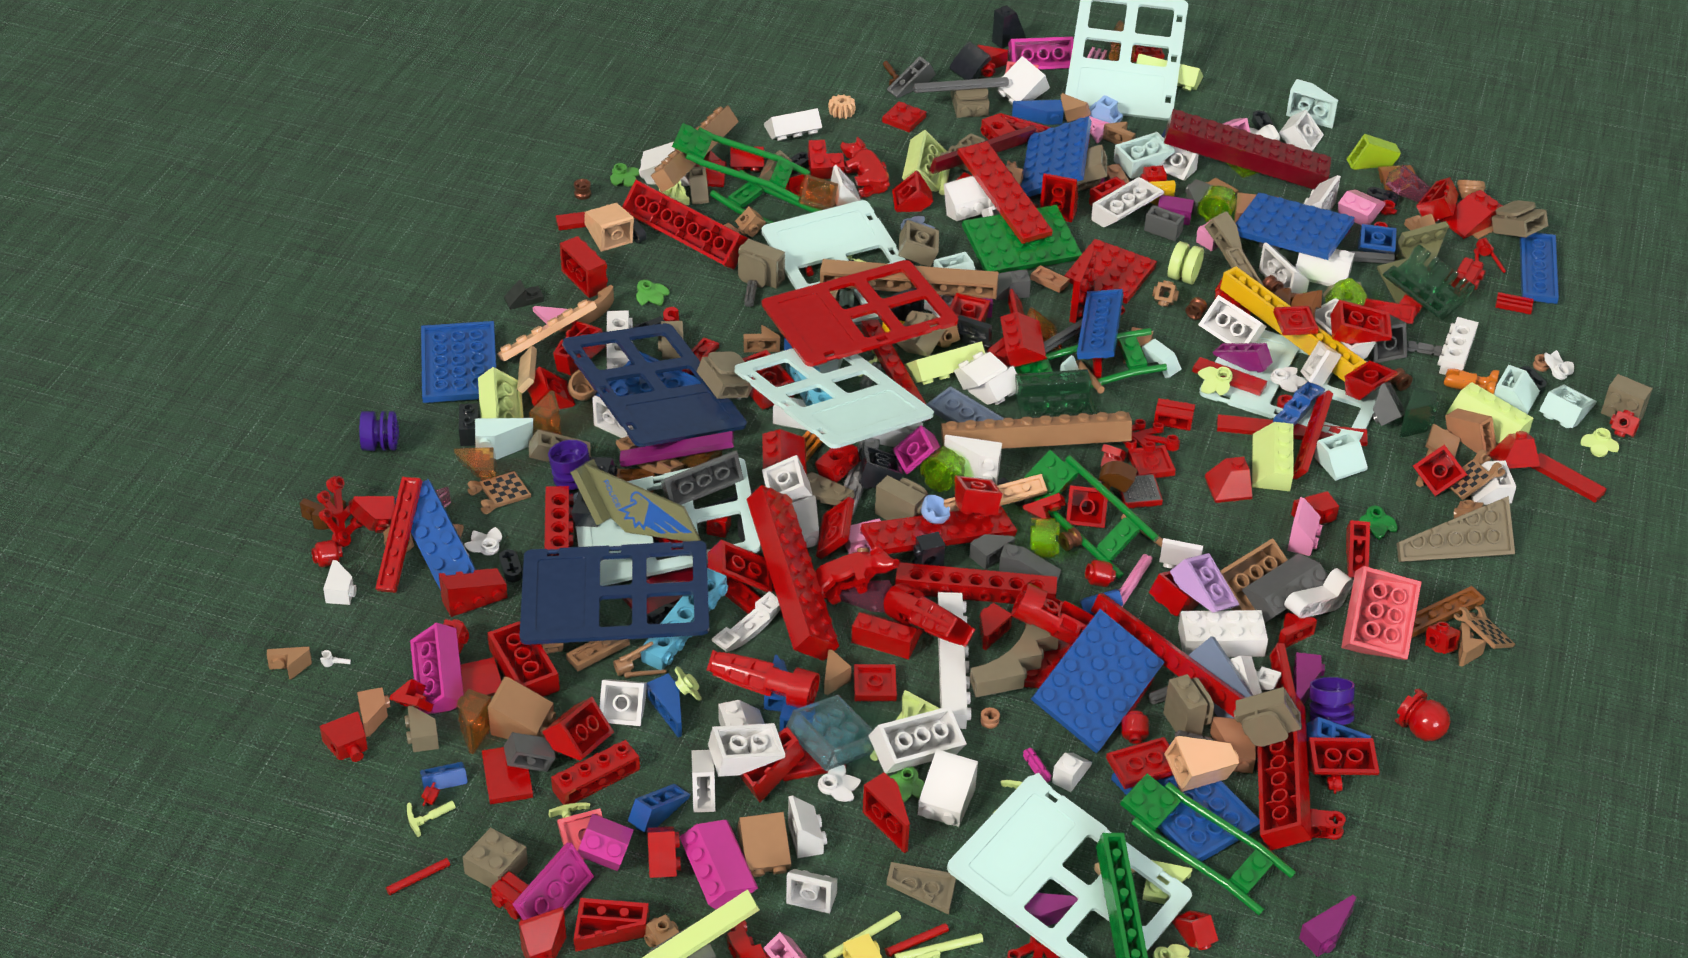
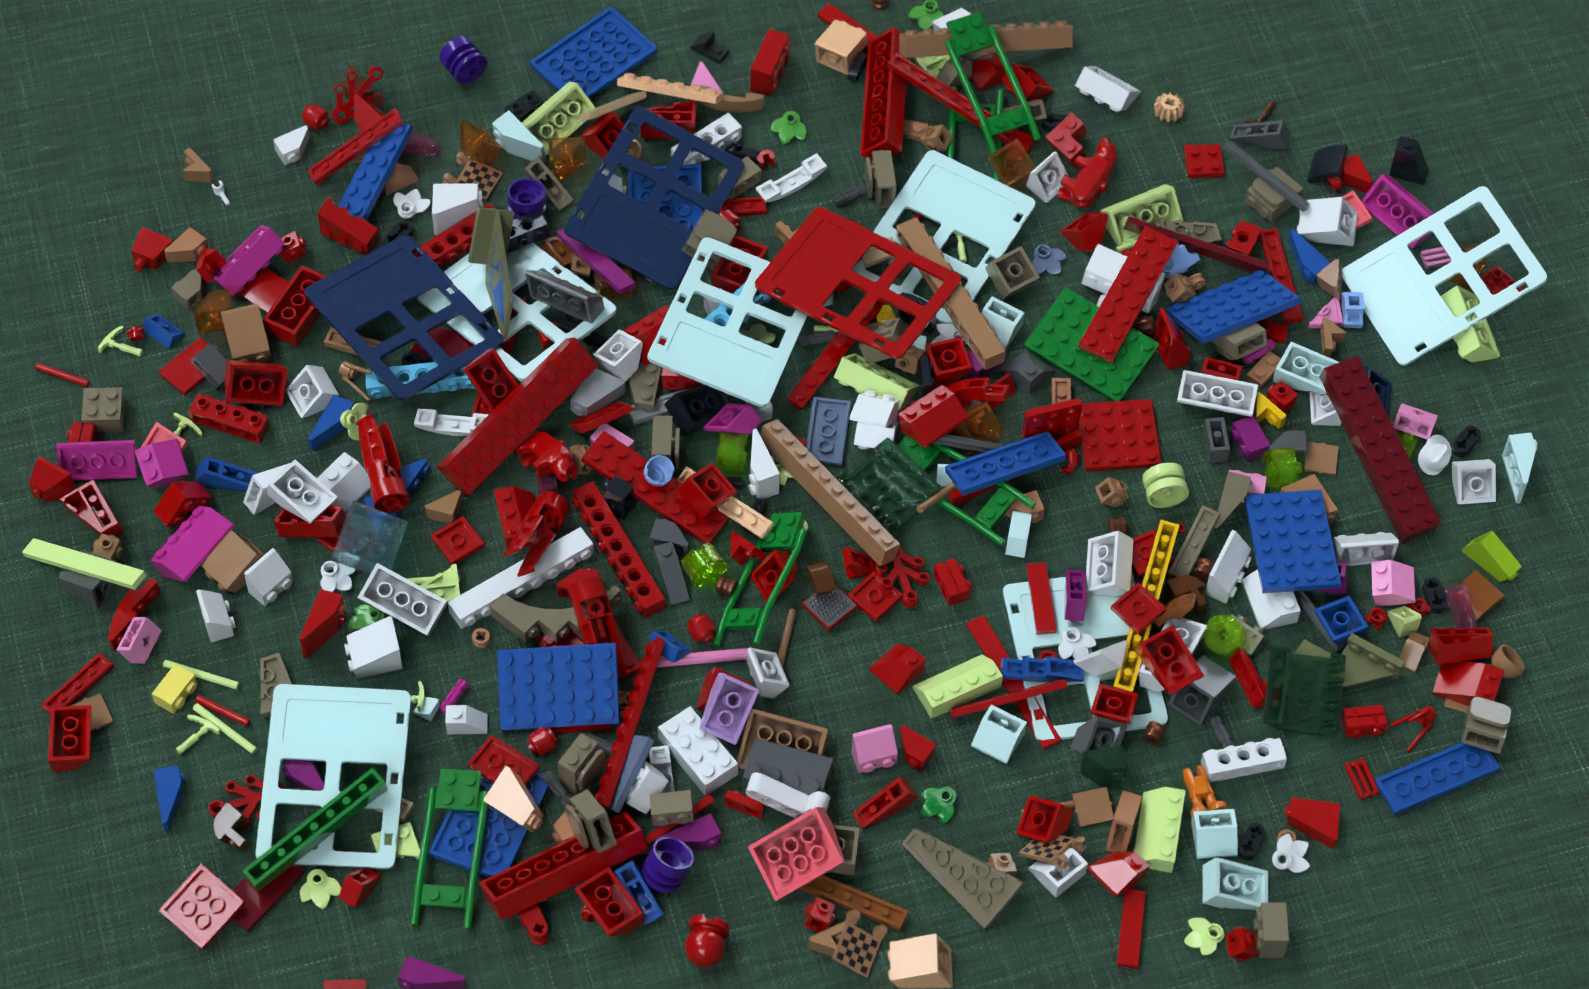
camera: 55 degrees right, 15 degrees up
(523, 510) = (453, 204): none -> white slope
(705, 312) = (794, 181): none -> white slope
(719, 191) = (941, 92): none -> red tile
(1015, 303) = (979, 390): none -> red slope
(1214, 381) = (1017, 590): yellowish green plate -> none
(1280, 667) = (671, 808): none -> dark tan brick
(1395, 216) = (1404, 620): none -> yellowish green slope
(1528, 600) = (921, 963): none -> light nougat slope
(1538, 338) = (1314, 819): none -> red slope

